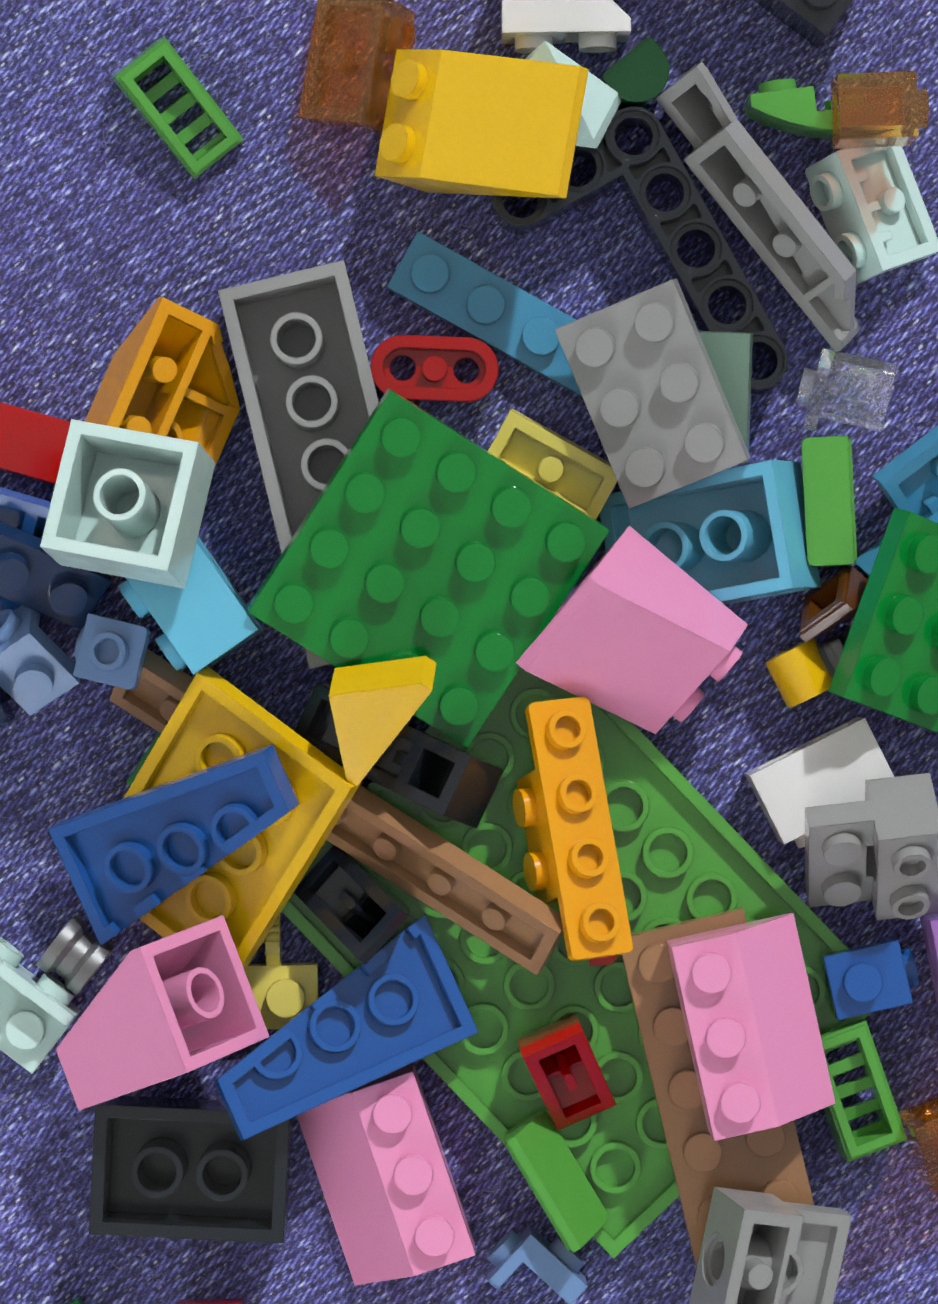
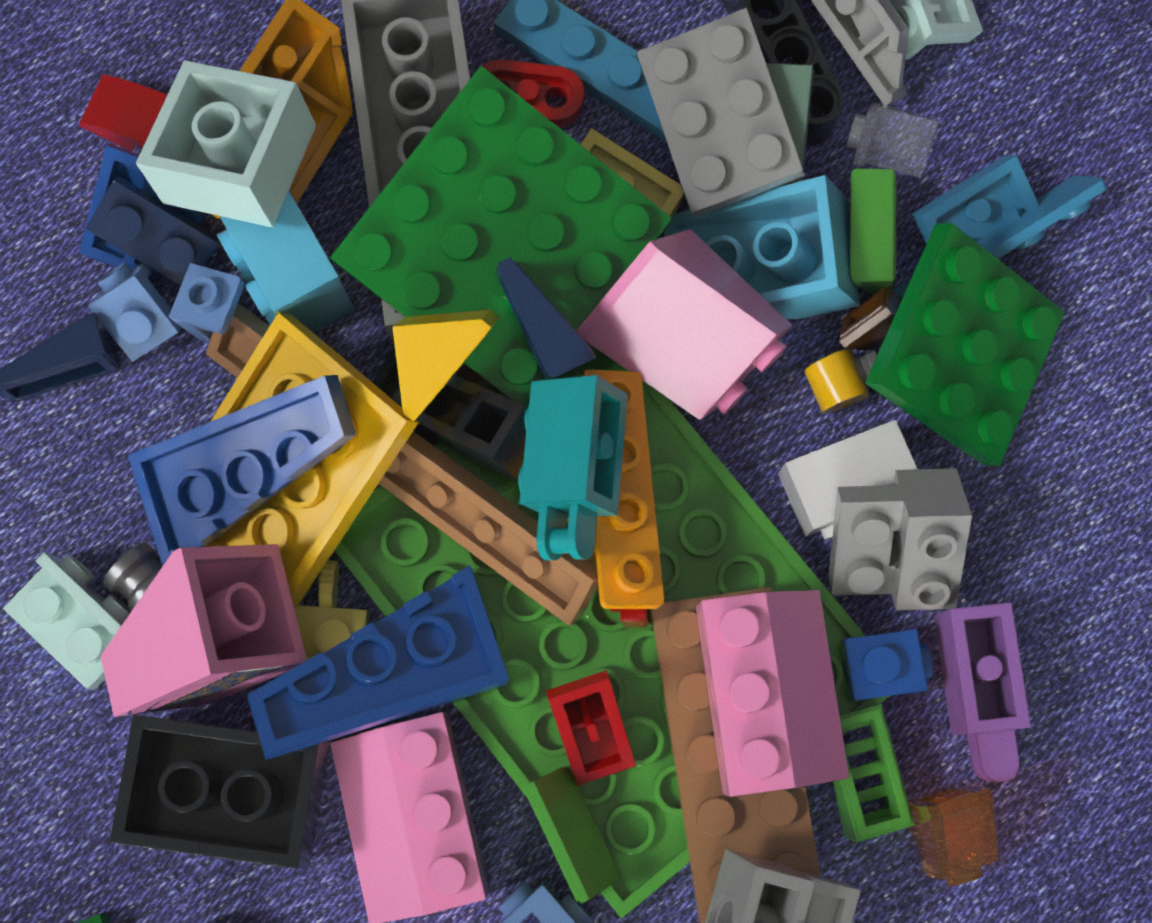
camera: 10 degrees right, 10 degrees down
(352, 903) = (404, 549): black slope -> none
(495, 685) = (548, 333): none -> dark blue slope
(526, 815) = (572, 461): none -> teal brick

